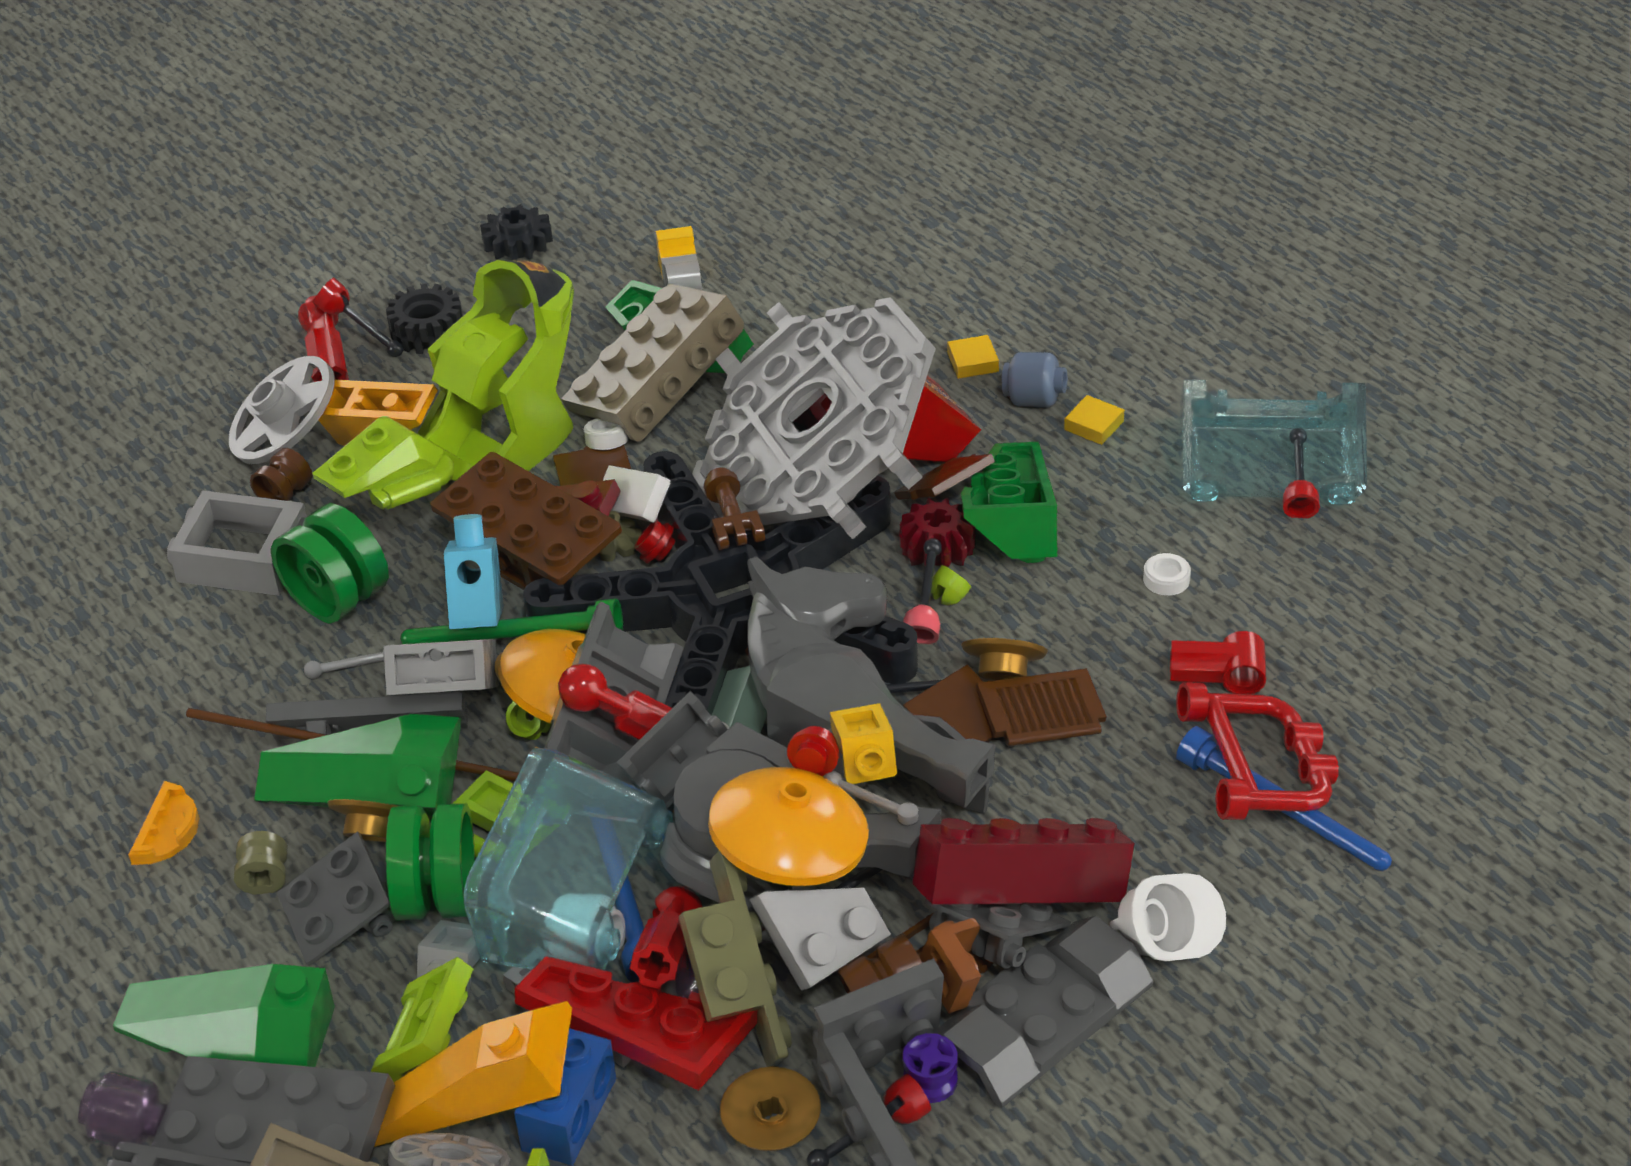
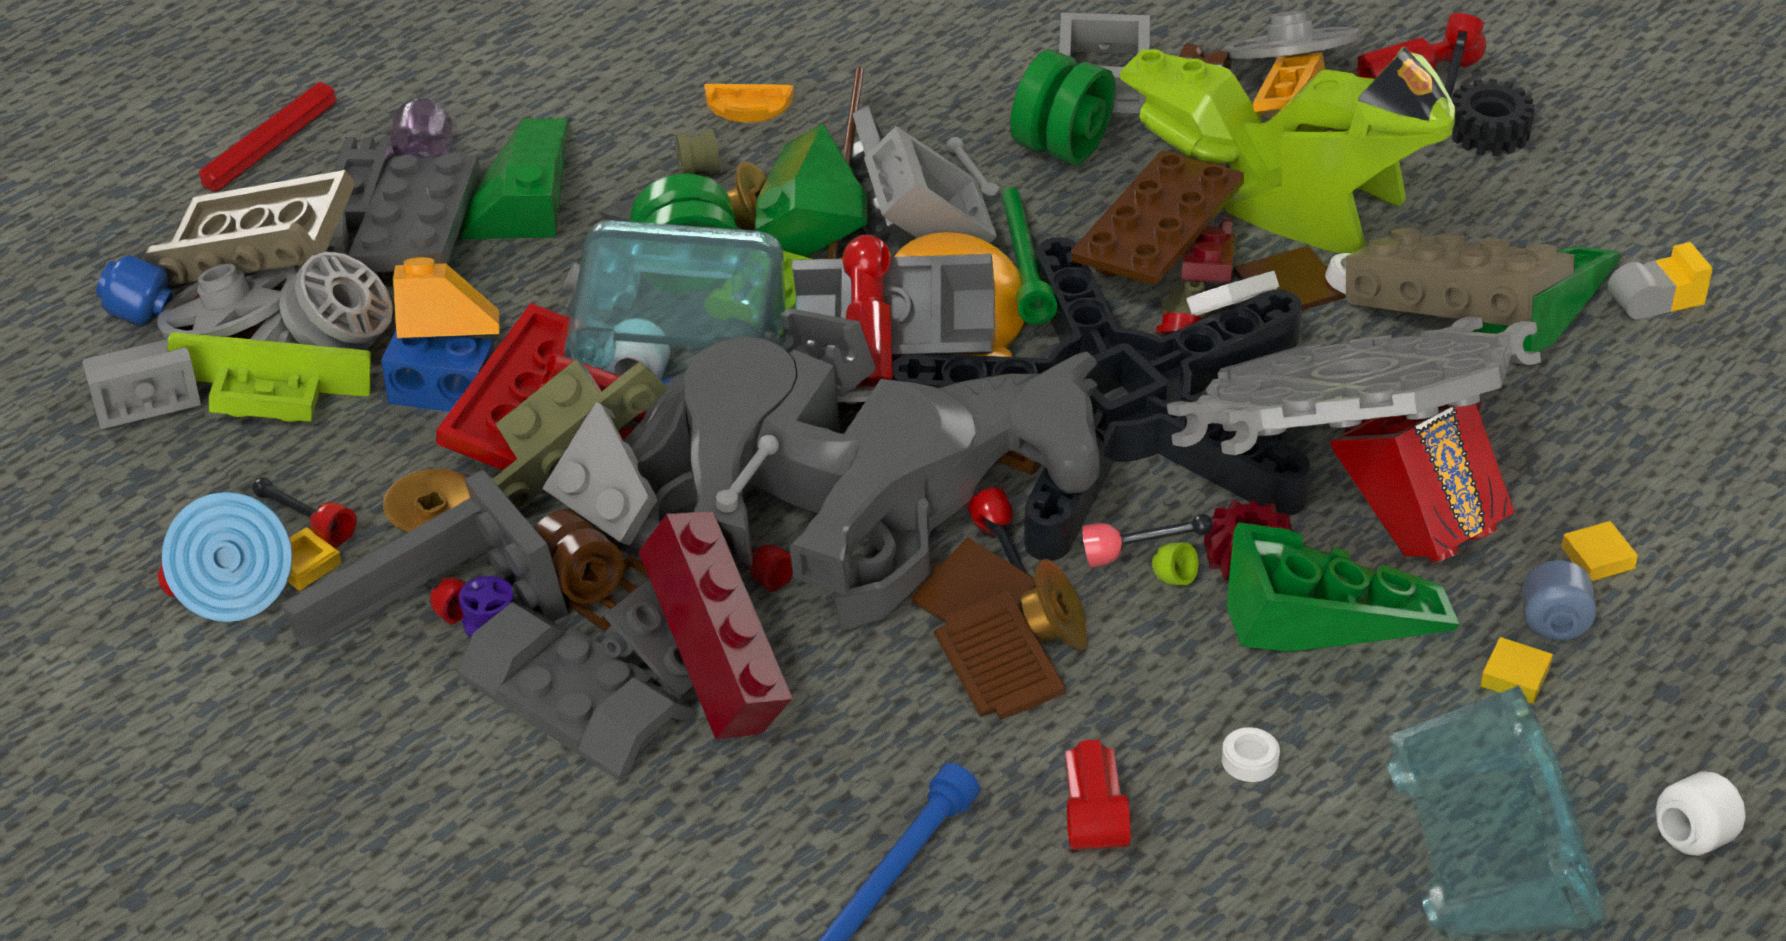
camera: 80 degrees right, 0 degrees up
(425, 1018) = (514, 270): lime plate -> none
(472, 594) = (1054, 193): medium azure torso -> none
(516, 232) = (1665, 153): black gear -> none
(722, 488) = (1185, 368): reddish brown hinge -> none
(788, 826) = (681, 428): light orange dish -> none
(813, 750) = (781, 411): red plate -> none
(864, 743) = (808, 443): yellow bracket -> none
(945, 476) = (1346, 535): reddish brown piece -> none
(950, 948) = (584, 586): dark orange bracket -> none
(1172, 917) = (680, 768): white piece -> none
(1240, 794) = (934, 891): red bar -> none
(1259, 350) = (1700, 813): none -> white head
(1300, 496) = (1419, 865): red hinge -> none

